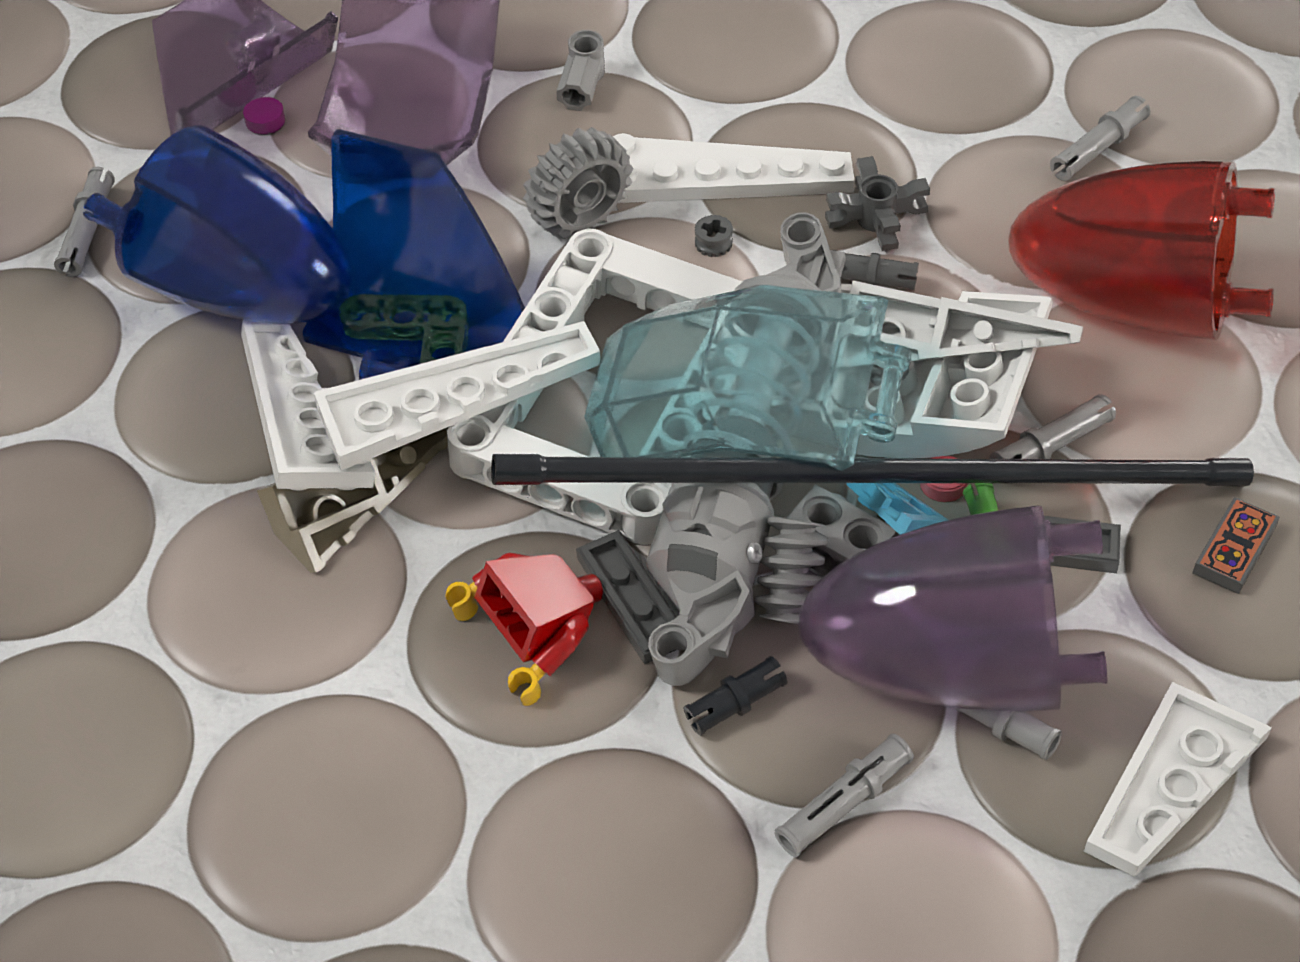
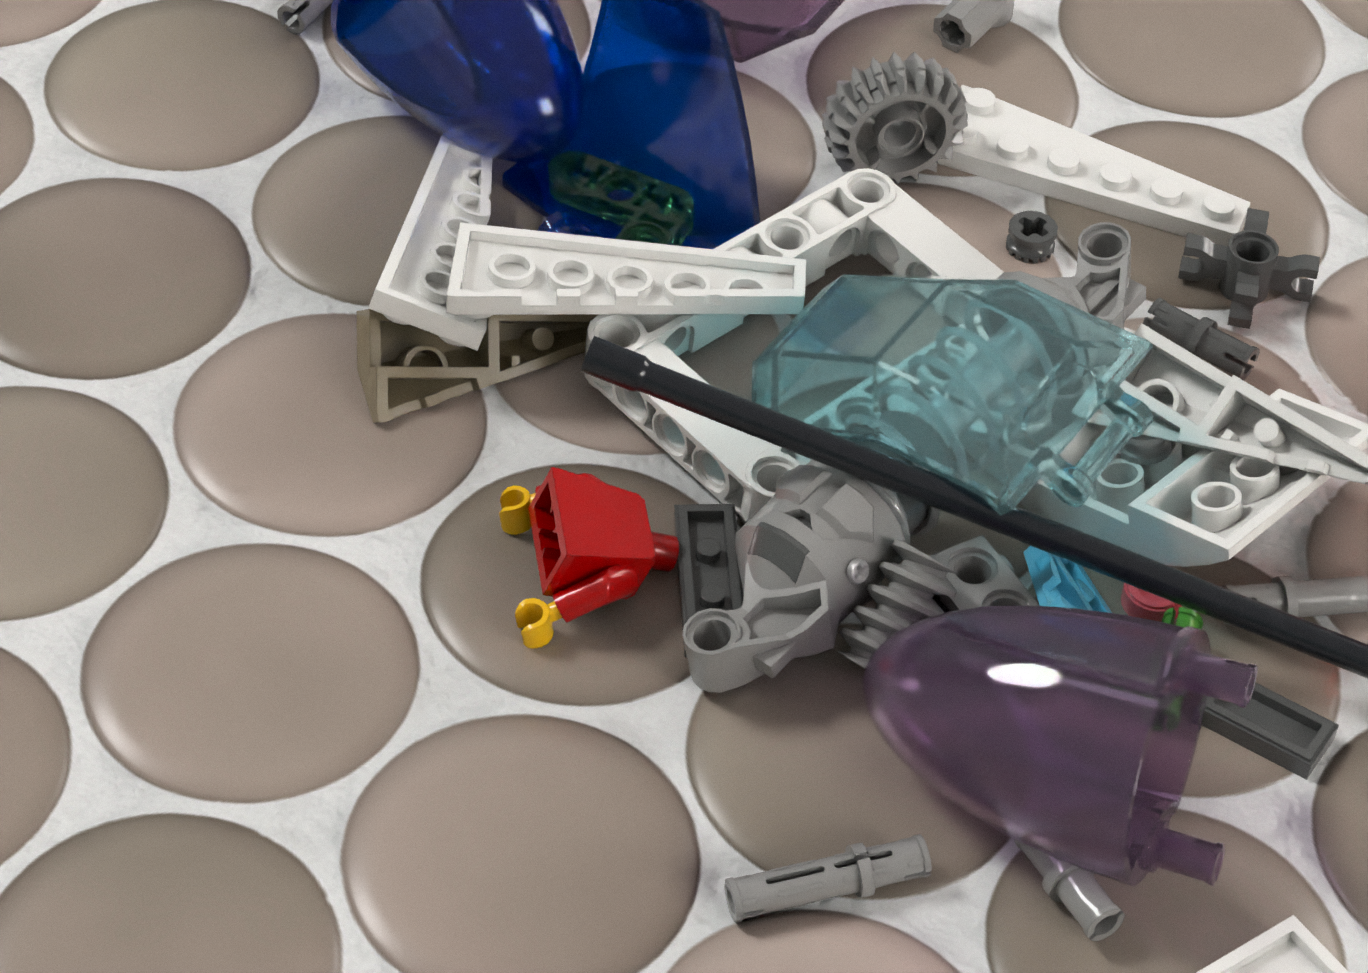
camera: 20 degrees right, 5 degrees down
(735, 695) = (764, 725): black pin -> none

